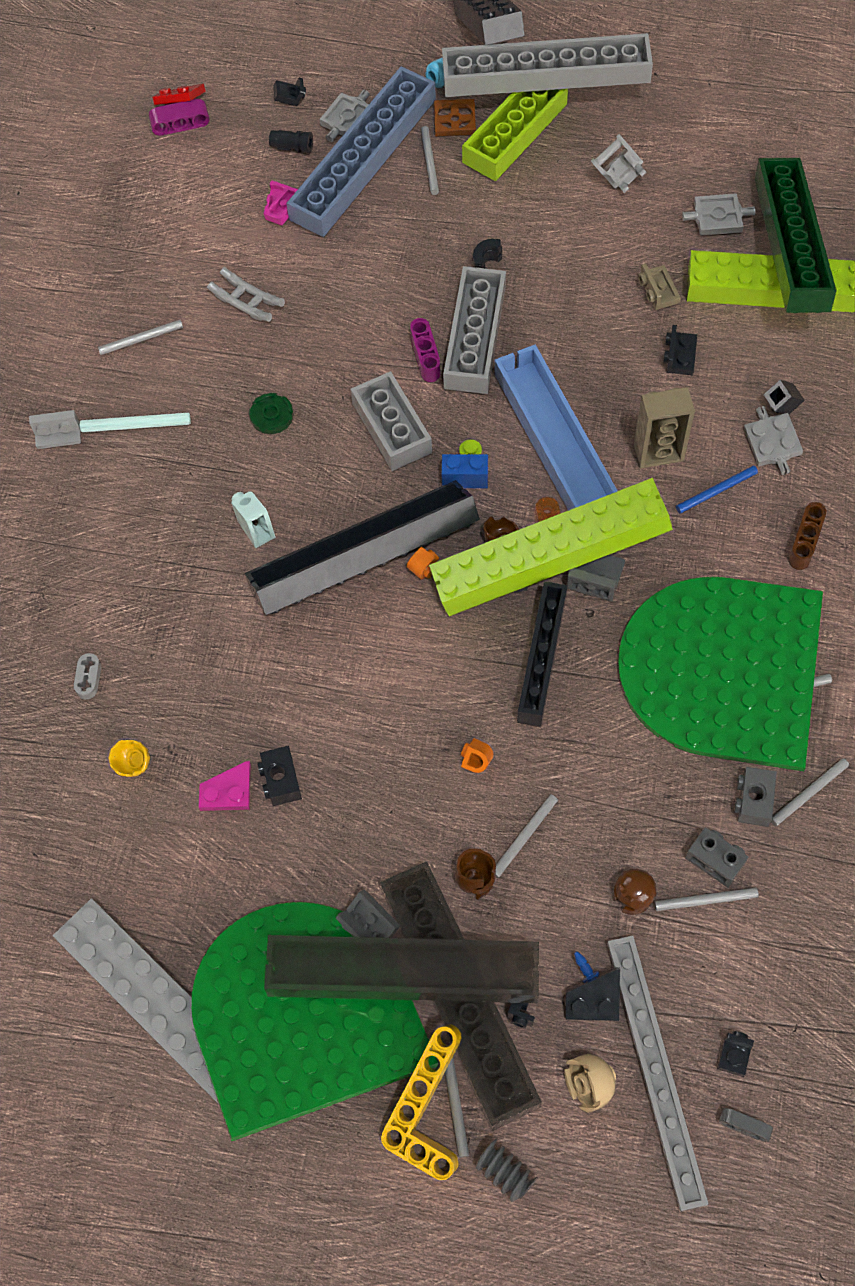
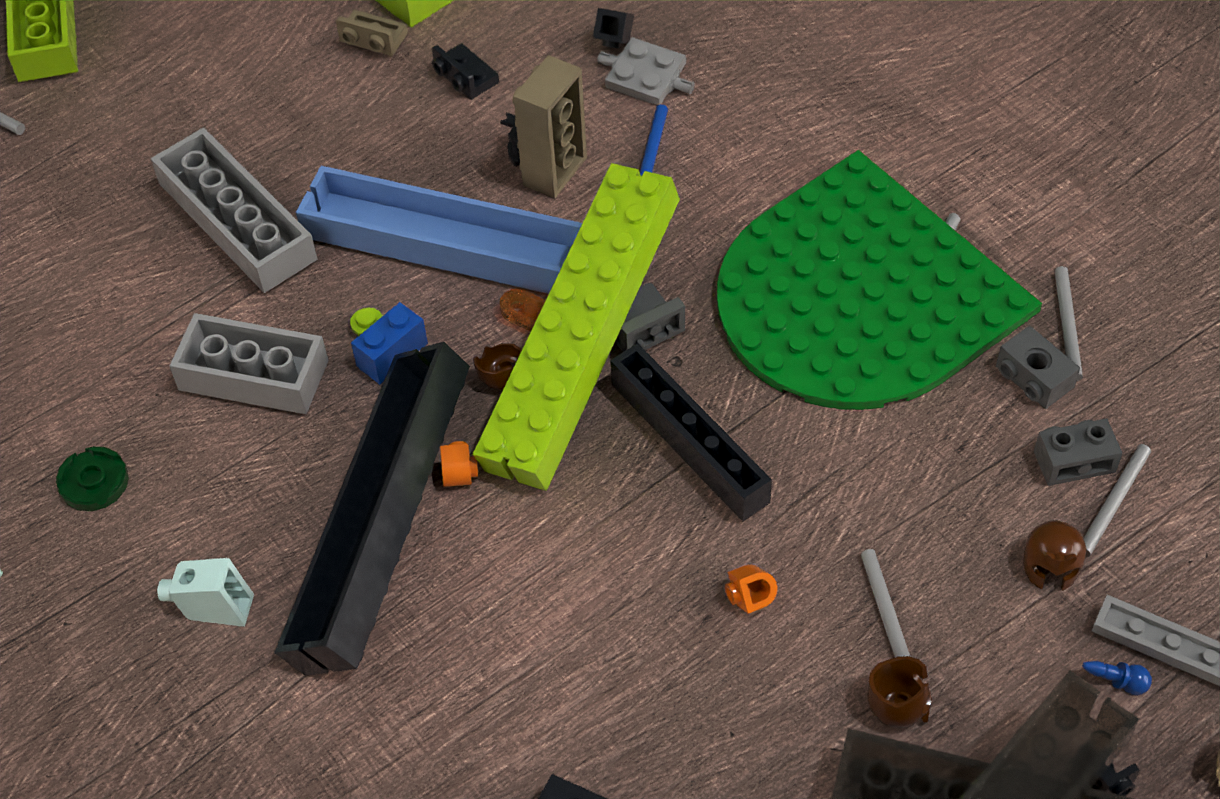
camera: 50 degrees left, 10 degrees down
(425, 350) = (199, 272): magenta beam -> none
(487, 251) = (154, 133): black piece -> none
(595, 999) = (1155, 687): black wing -> none
(811, 527) = (783, 119): reddish brown beam -> none

